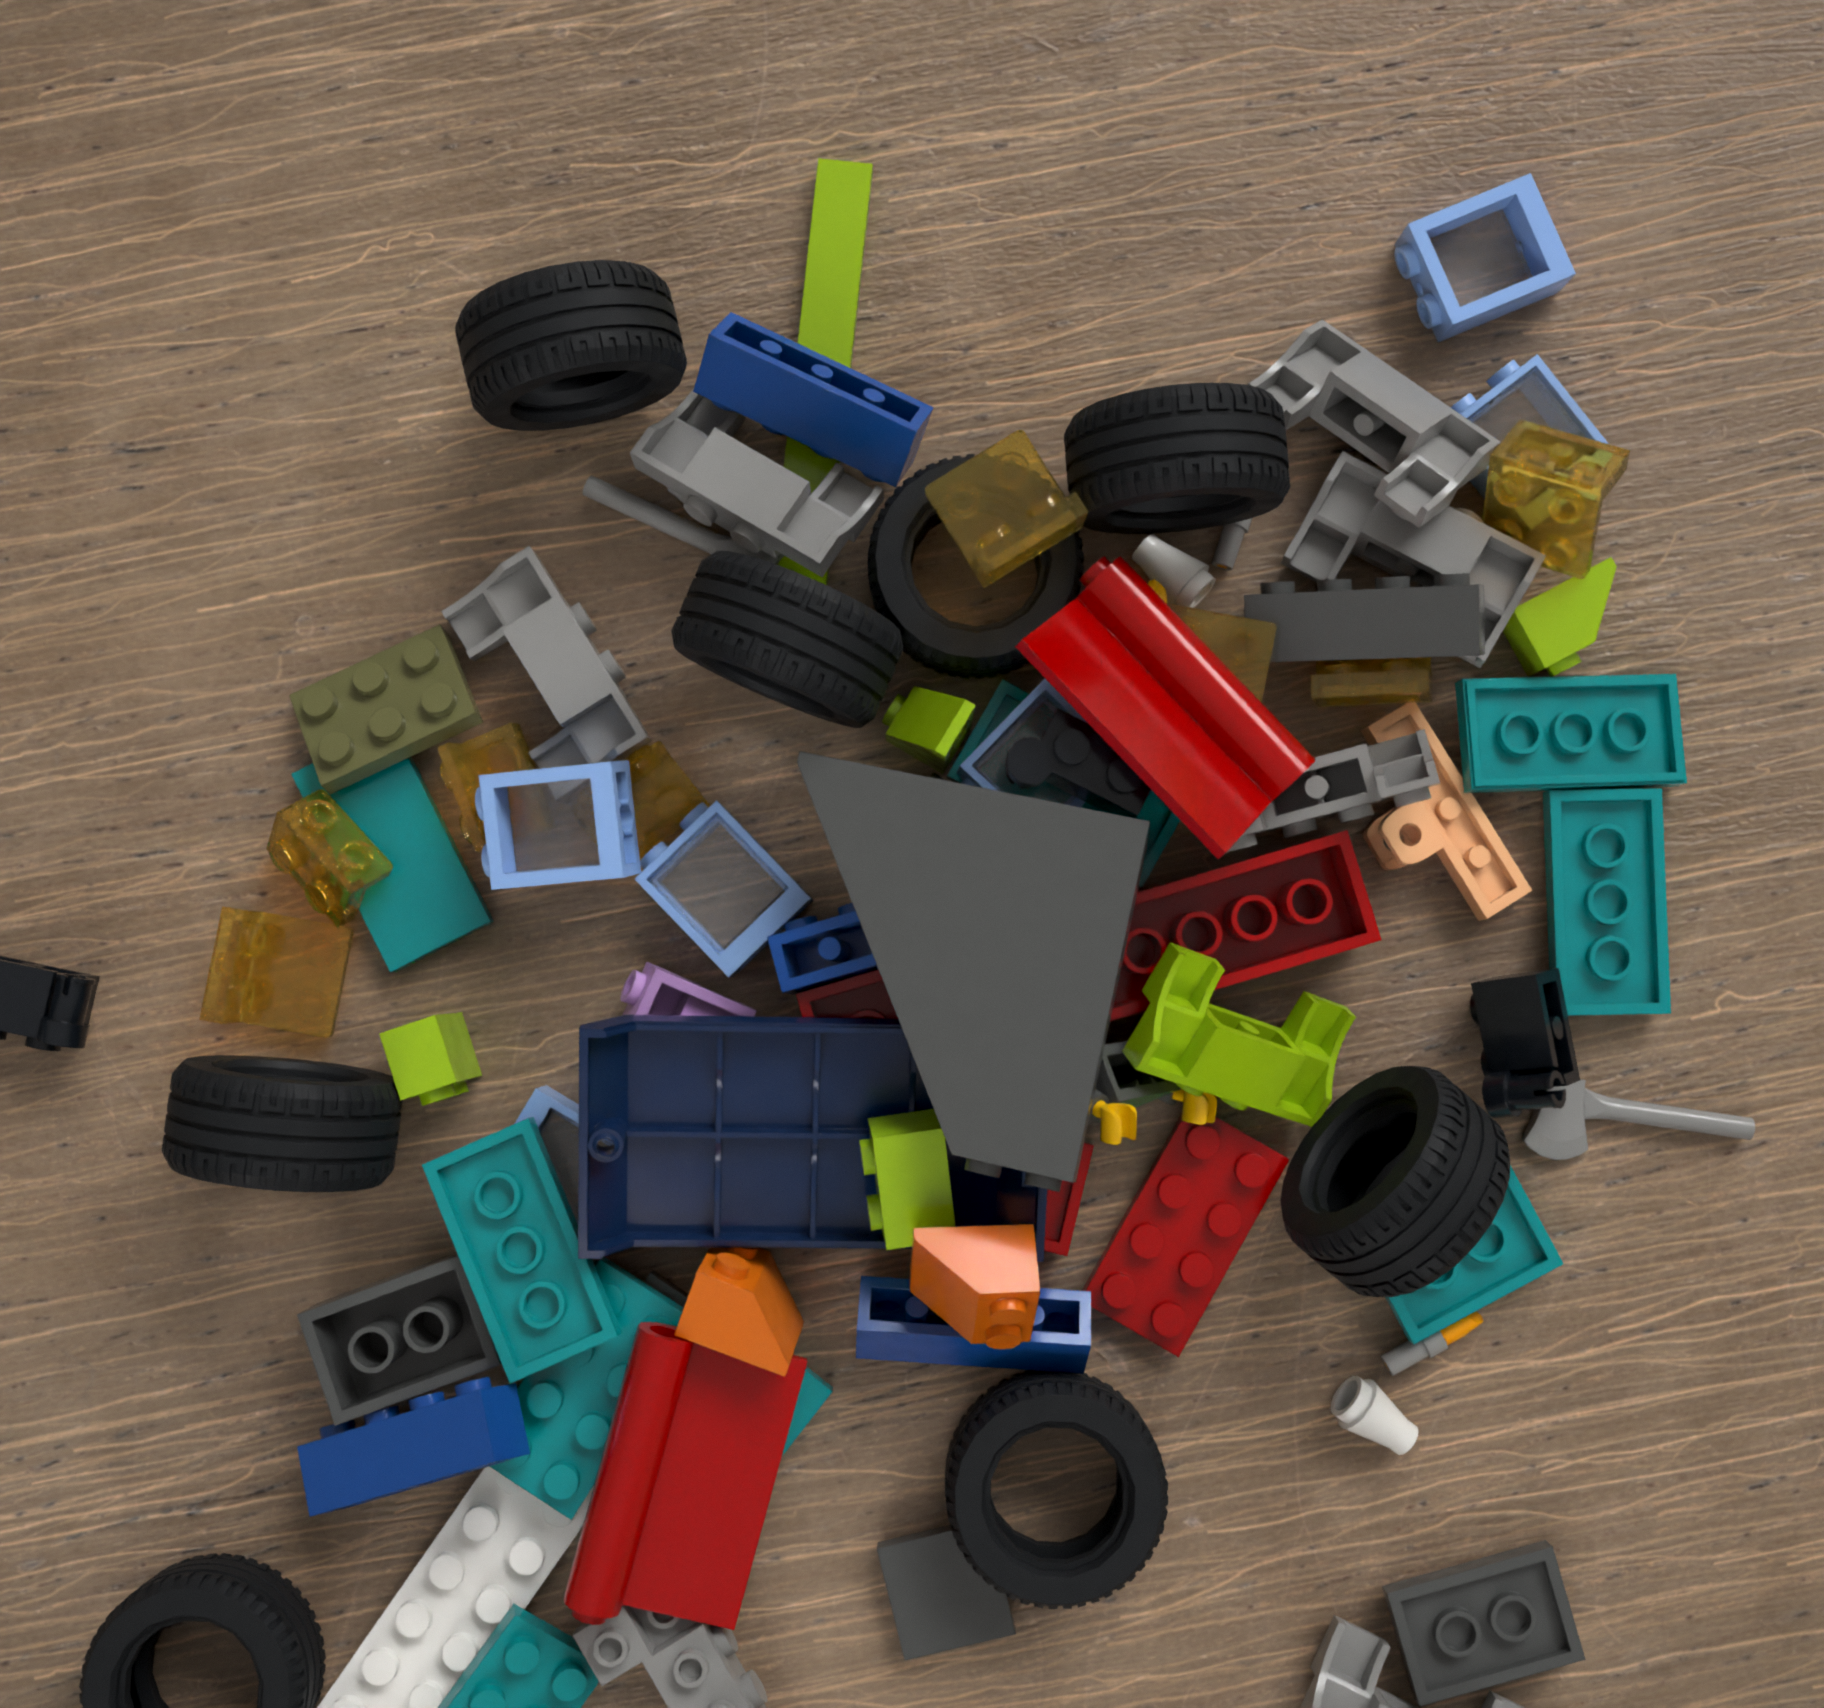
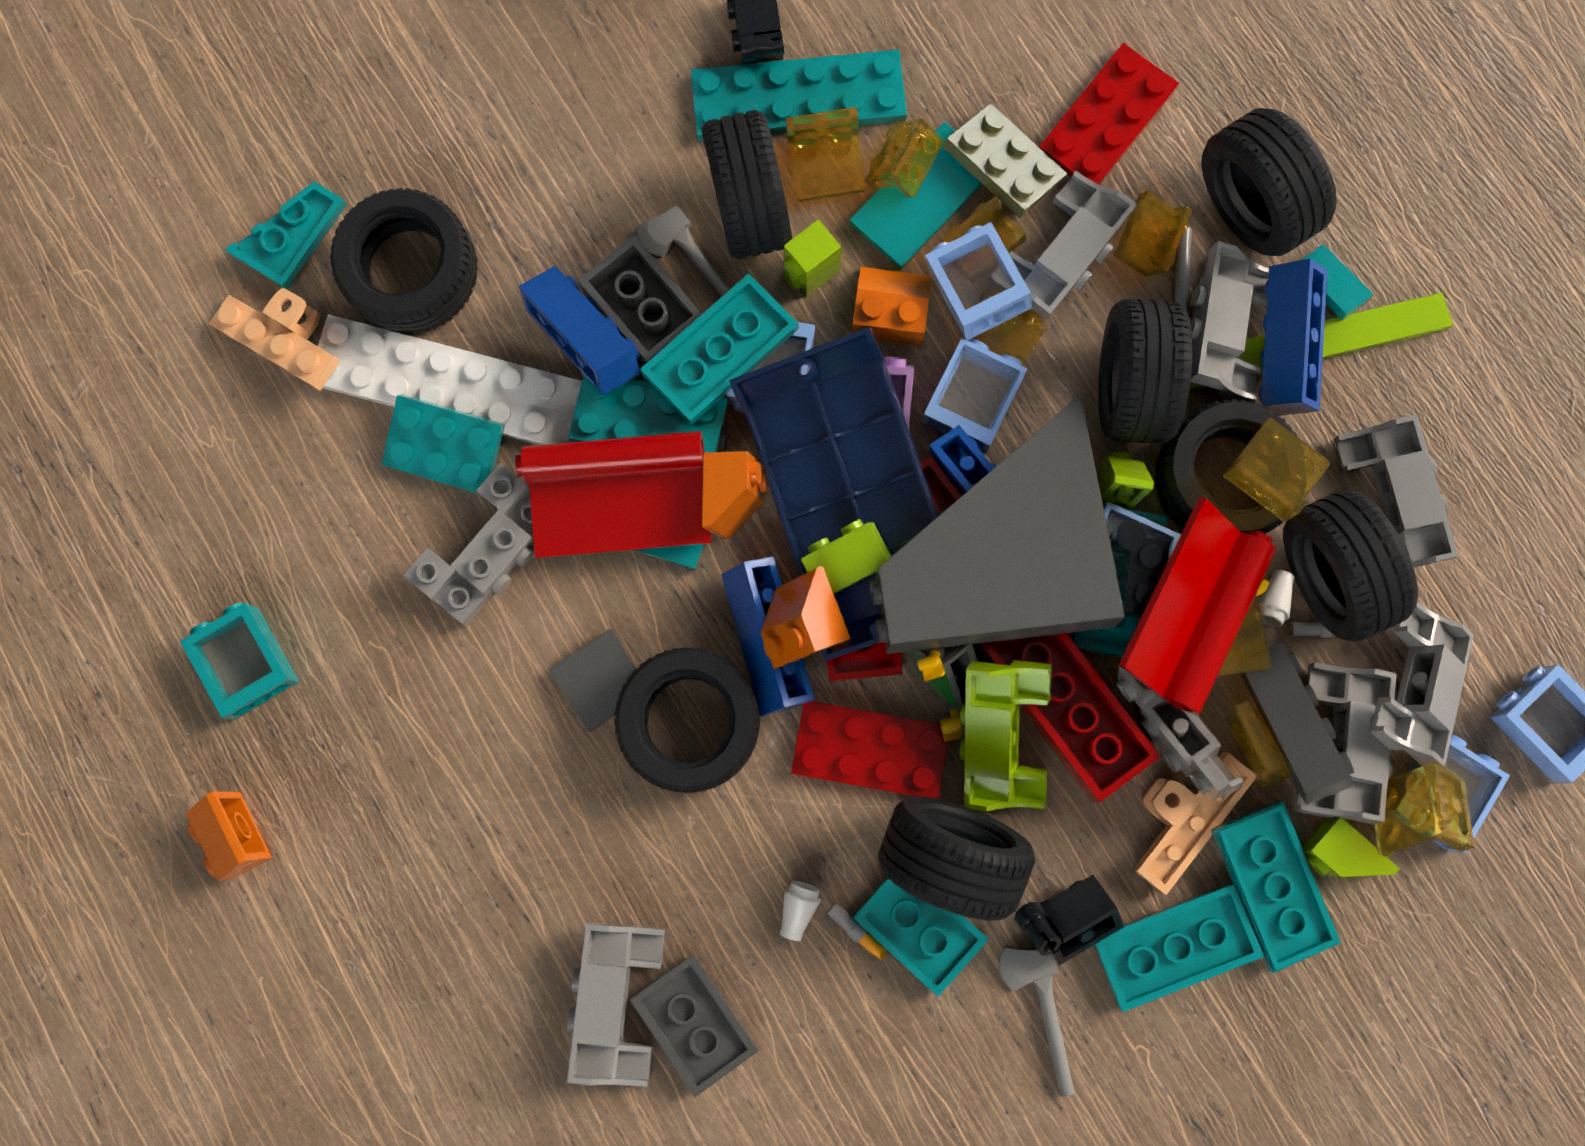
camera: 70 degrees right, 5 degrees down
(160, 970) = (803, 88): none -> teal plate
(301, 1239) = (673, 227): none -> light grey piece
(374, 528) = (1109, 115): none -> red plate
(542, 959) = (892, 305): none -> orange slope
(580, 537) = (1152, 235): none -> clear yellow bracket
(762, 296) = (1344, 290): none -> teal tile
(1085, 328) = (1405, 485): none -> light grey bracket

